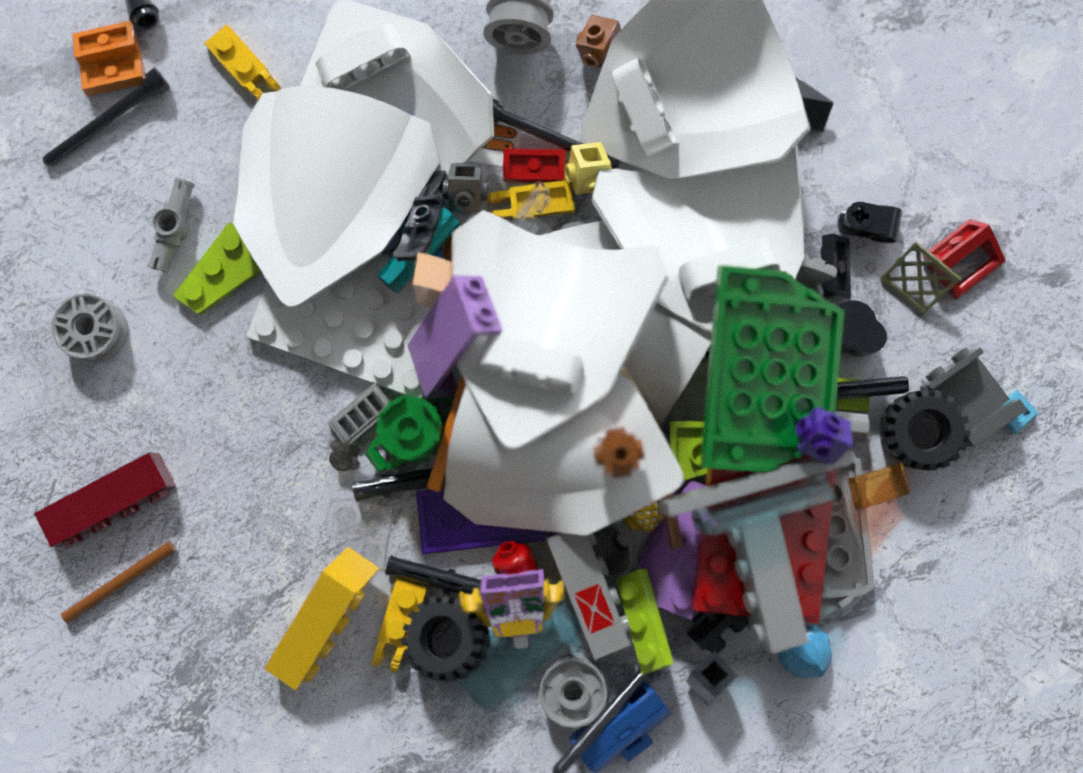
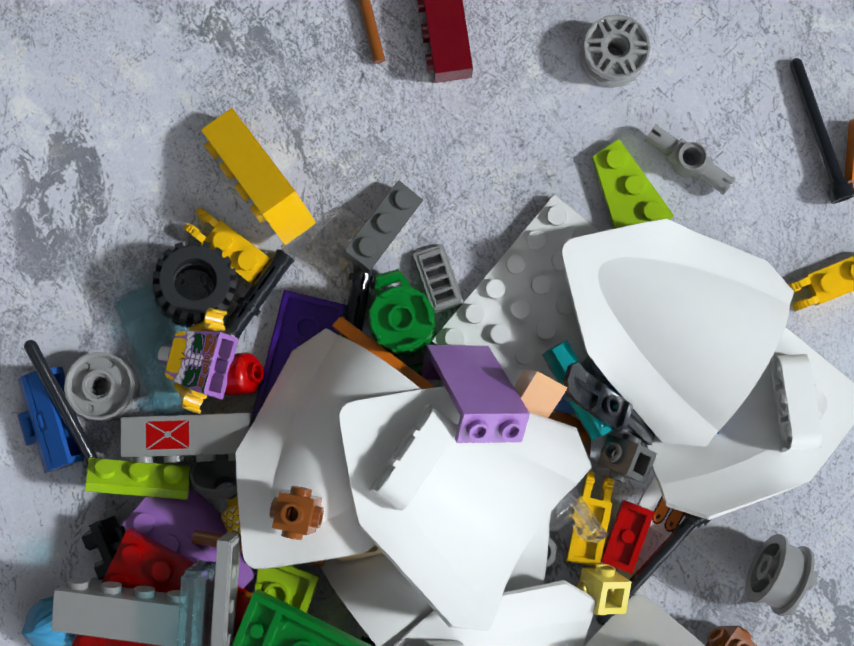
camera: 110 degrees right, 0 degrees up
(330, 482) = (382, 227): none -> dark grey plate
(344, 456) = (404, 249): clear smoke plate -> none
(711, 678) = (60, 523): black brick -> none

